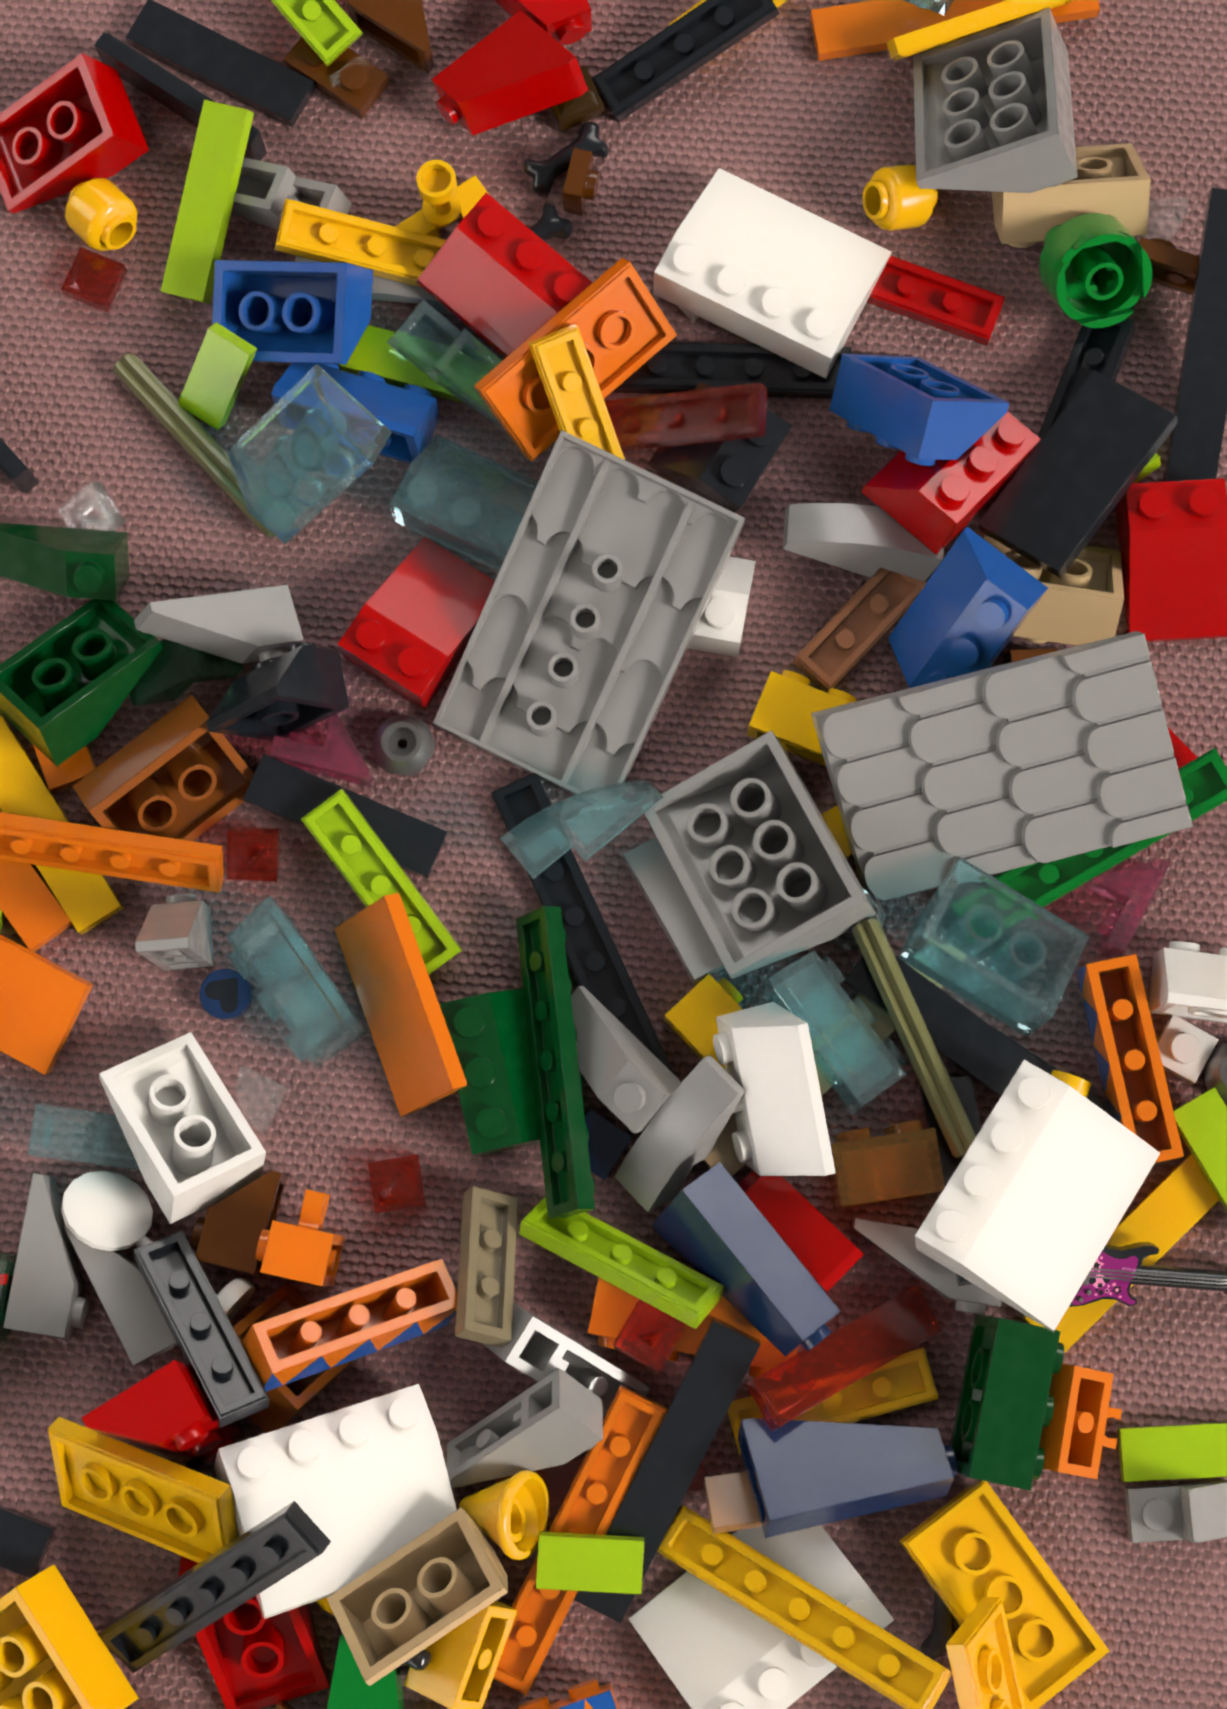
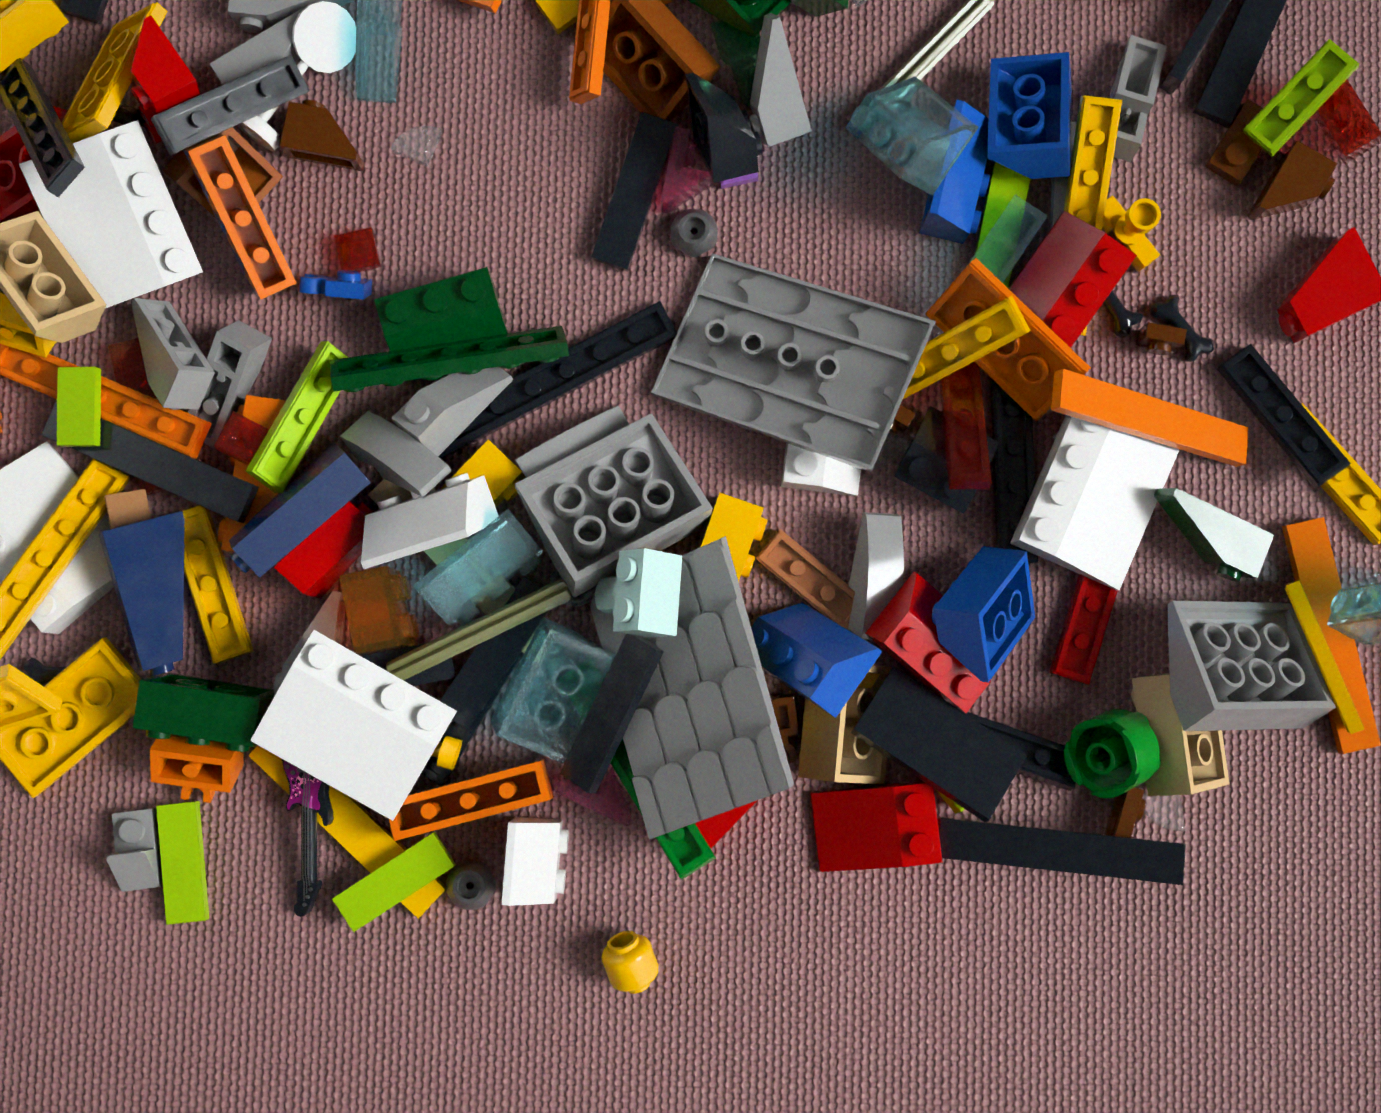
camera: 80 degrees right, 5 degrees up
(177, 934) = (532, 67): light grey slope -> none
(183, 1127) = (388, 84): white slope -> none
(207, 201) = (1123, 45): lime tile -> none
(217, 376) = (977, 64): lime tile -> none
(225, 994) = (494, 114): dark blue tile -> none
(253, 853) = (602, 124): clear red tile -> none
(293, 984) = (502, 162): clear light blue slope -> none
(303, 1249) = (299, 181): orange brick -> none
(376, 873) = (582, 221): lime tile -> none
(400, 1005) = (487, 240): orange tile -> none
(418, 622) = (791, 234): red slope -> none
(445, 1199) = (344, 285): none -> blue plate
(463, 501) = (894, 261): clear light blue slope -> none
(486, 1267) = (291, 317): dark tan plate -> none
(508, 77) = (1243, 273): red slope -> none
(511, 1512) = (111, 347): yellow hat -> none
(579, 823) = (633, 365): clear light blue slope -> none
(581, 108) = (1232, 330): dark brown tile -> none
(604, 1144) = (390, 399): dark blue tile -> none
(686, 196) = (1149, 418): none -> orange tile
(832, 130) = (1216, 535): none -> slope
(843, 1357) = (236, 590): clear red tile -> none
(882, 818) = (642, 593): none -> light aqua brick
(895, 199) = (1161, 587): yellow head -> none
(1027, 870) = (611, 712): none -> black tile
(1184, 1049) = (486, 843): white plate -> none

